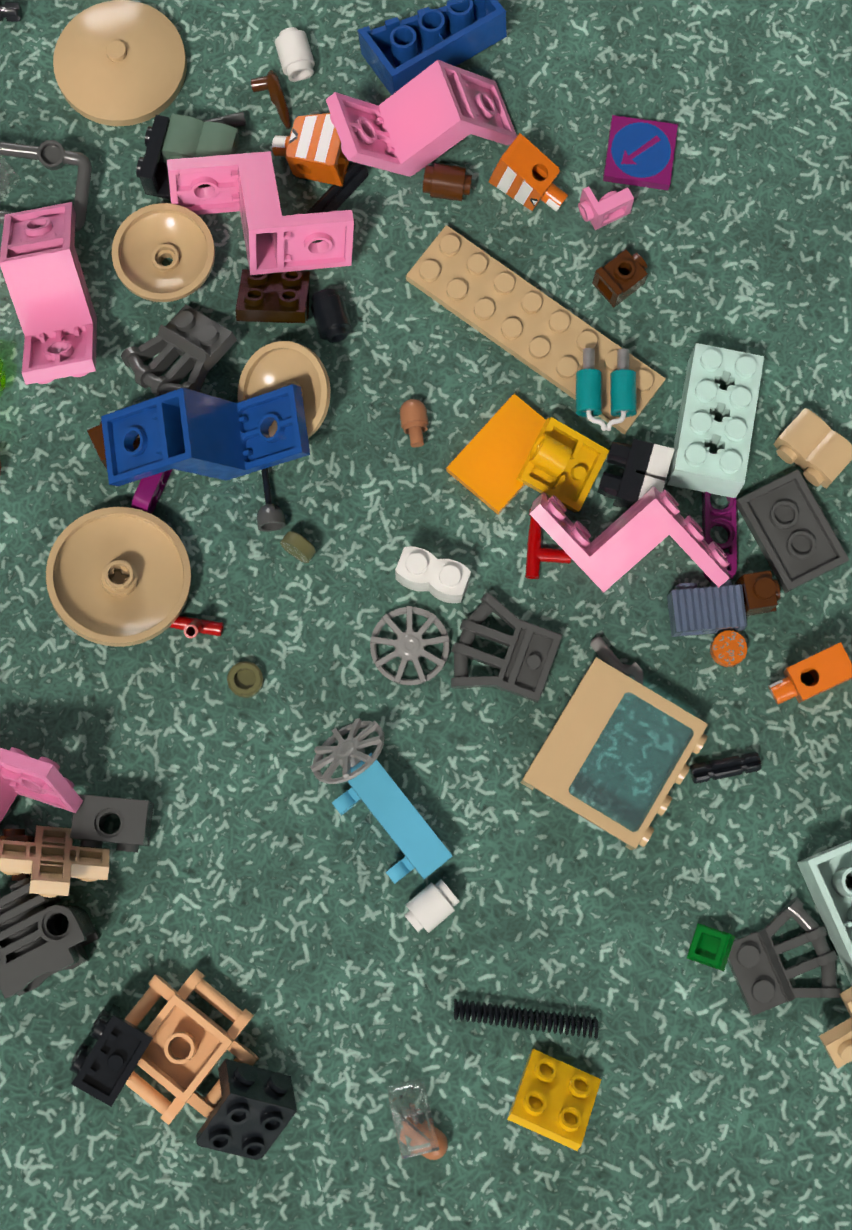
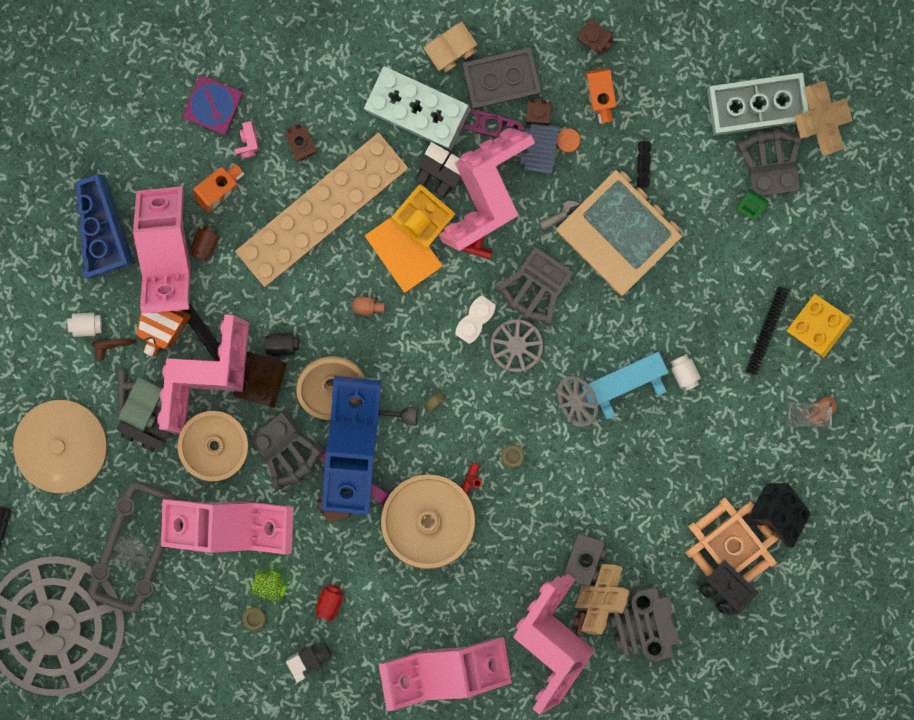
camera: 70 degrees left, 10 degrees up
(622, 389) = (377, 186): teal piece -> none

